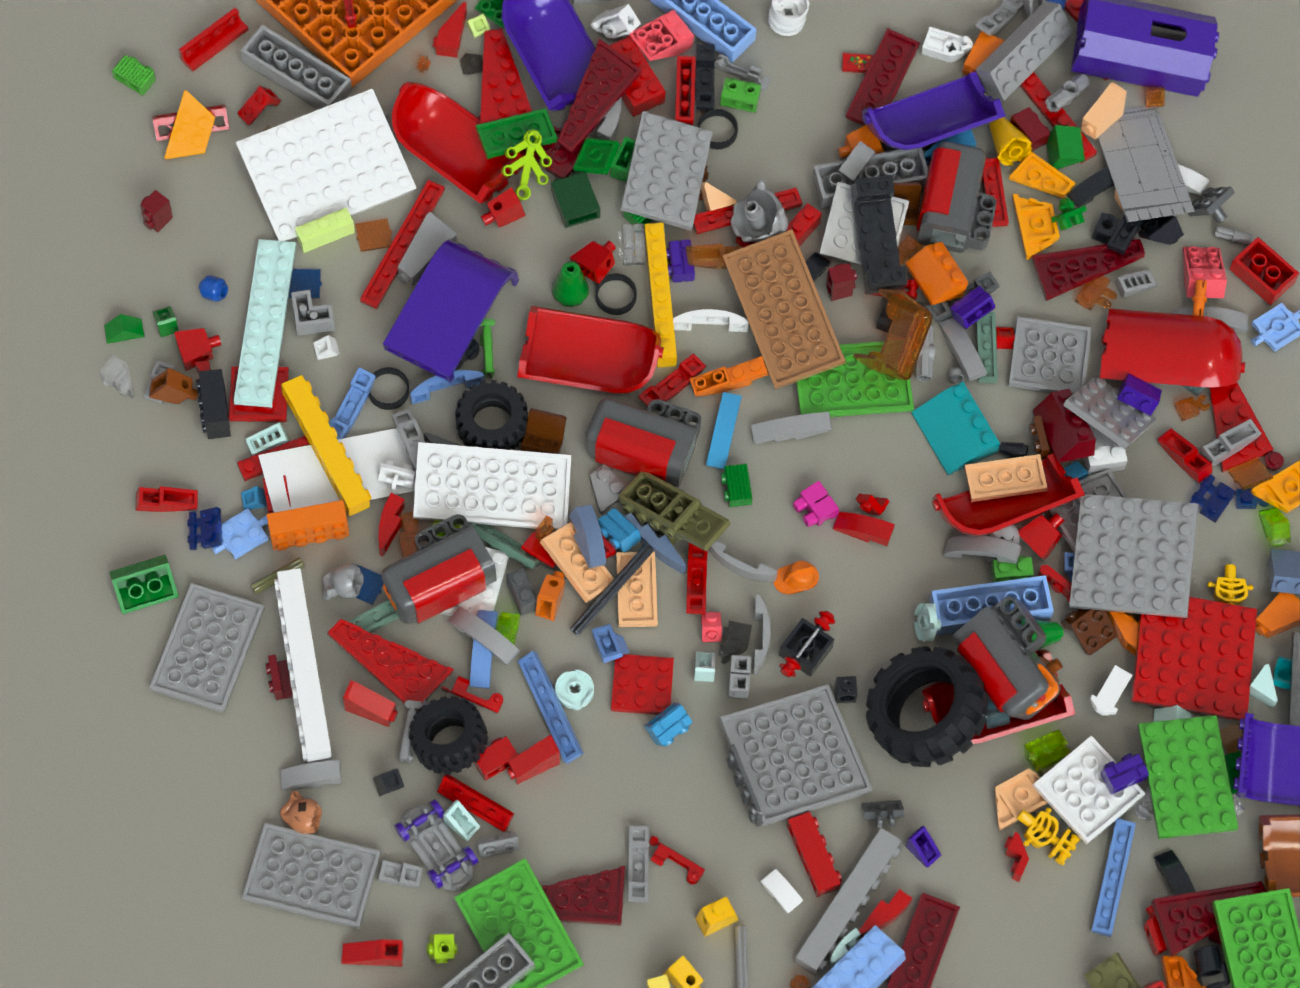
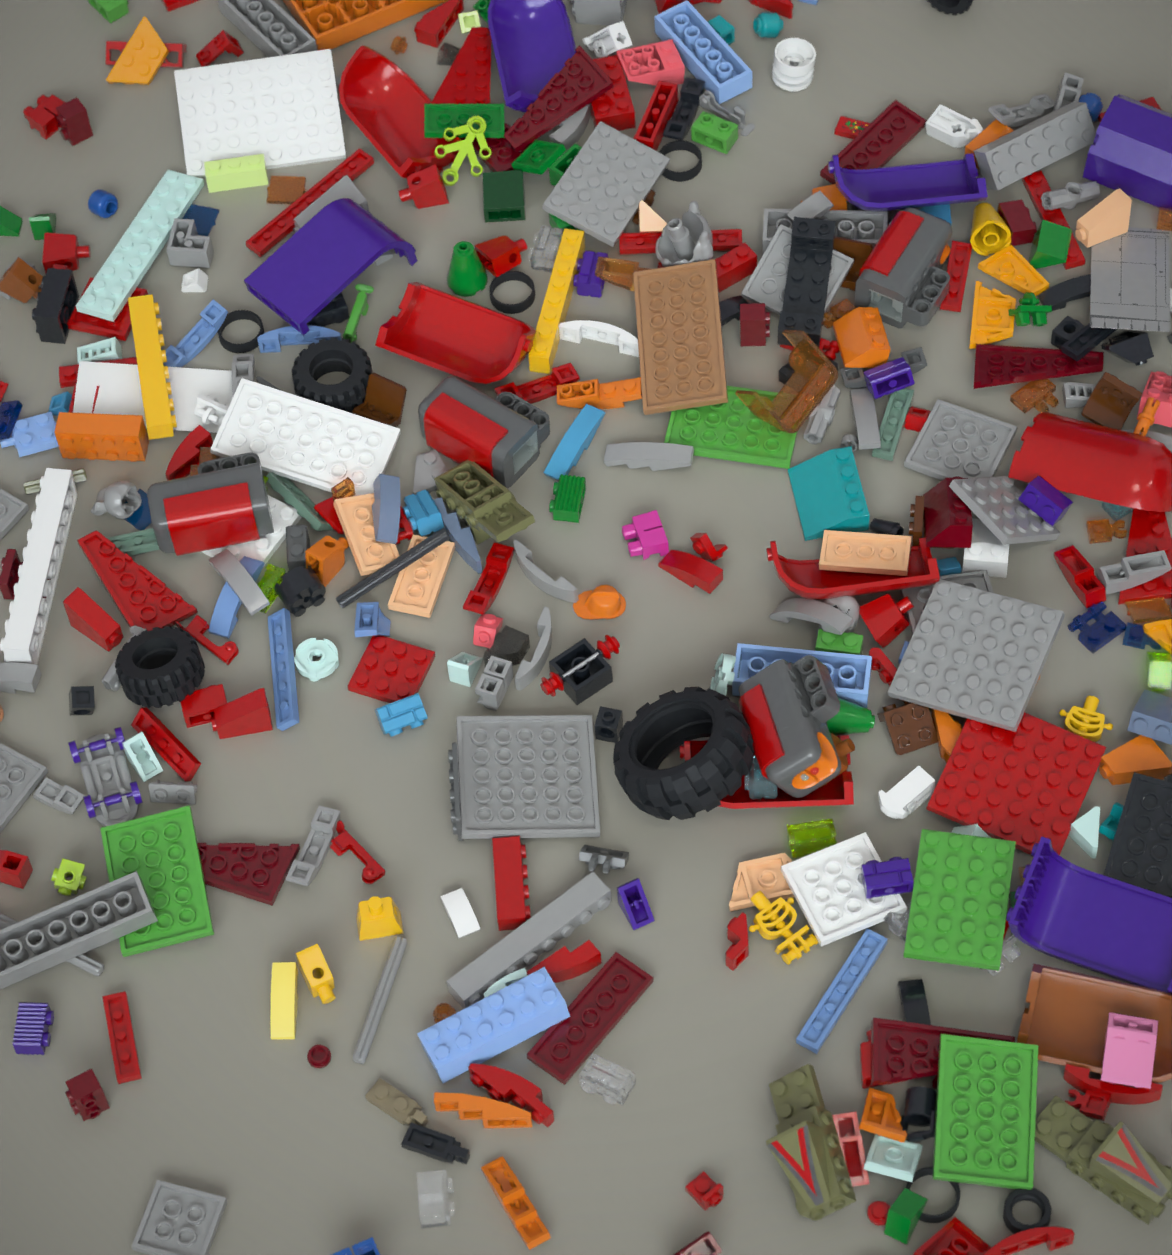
camera: 25 degrees right, 10 degrees down
(125, 209) = (44, 115): none -> red hips
(540, 630) = (300, 590): none -> black brick
(1162, 288) = (1110, 402): none -> reddish brown bracket

